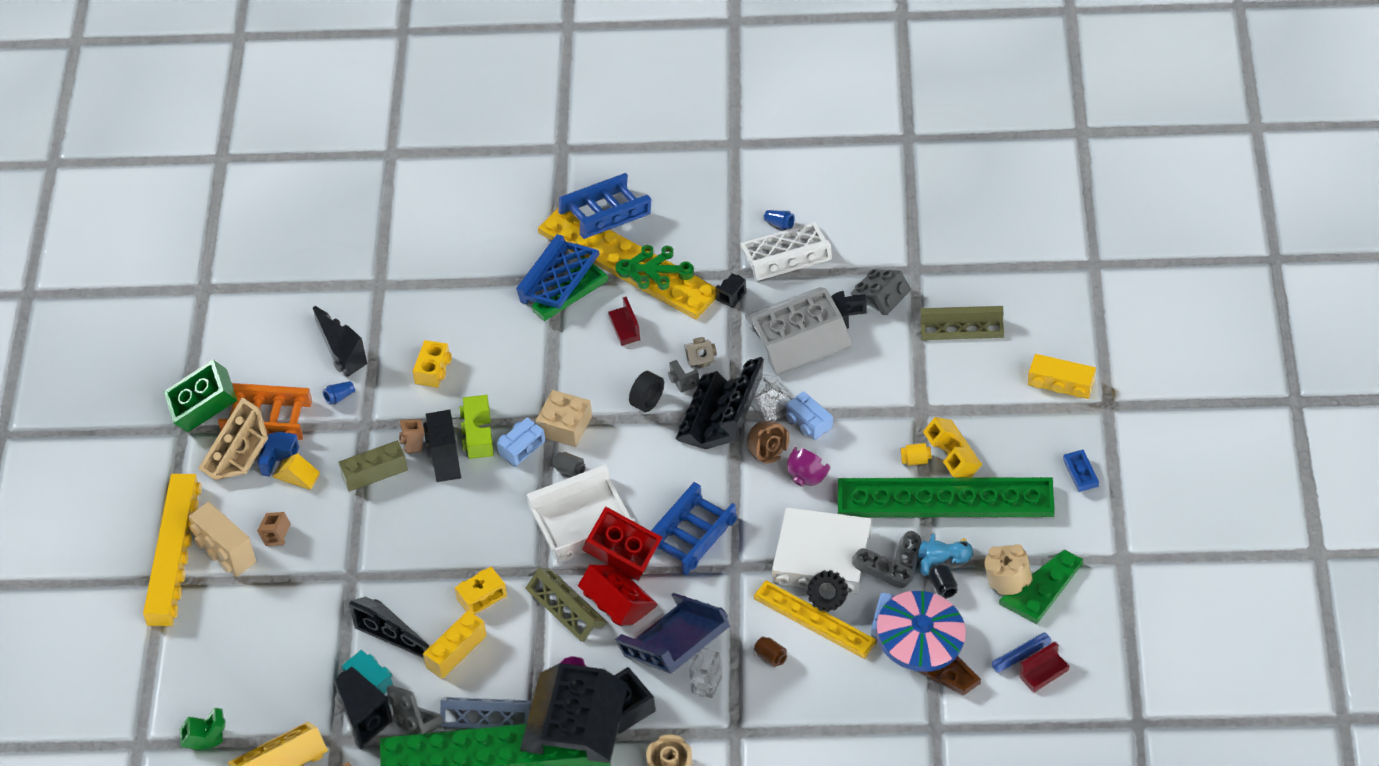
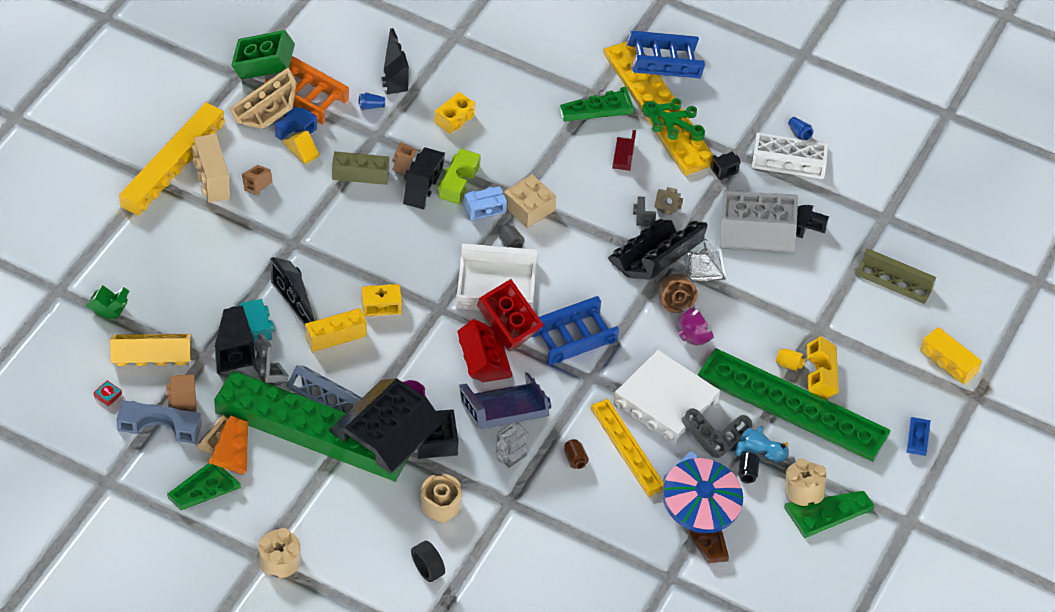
camera: 20 degrees right, 0 degrees up
(545, 267) = (591, 80): blue fence -> none
(565, 594) = (443, 335): olive fence -> none
(646, 391) = (611, 215): black tyre -> none
(809, 416) = (724, 289): light blue brick -> none
(836, 581) = (660, 429): black tyre -> none
(884, 287) = (849, 220): dark grey bracket -> none
(1021, 652) = (776, 553): blue axle -> none
(1043, 667) = (785, 572): dark red panel -> none

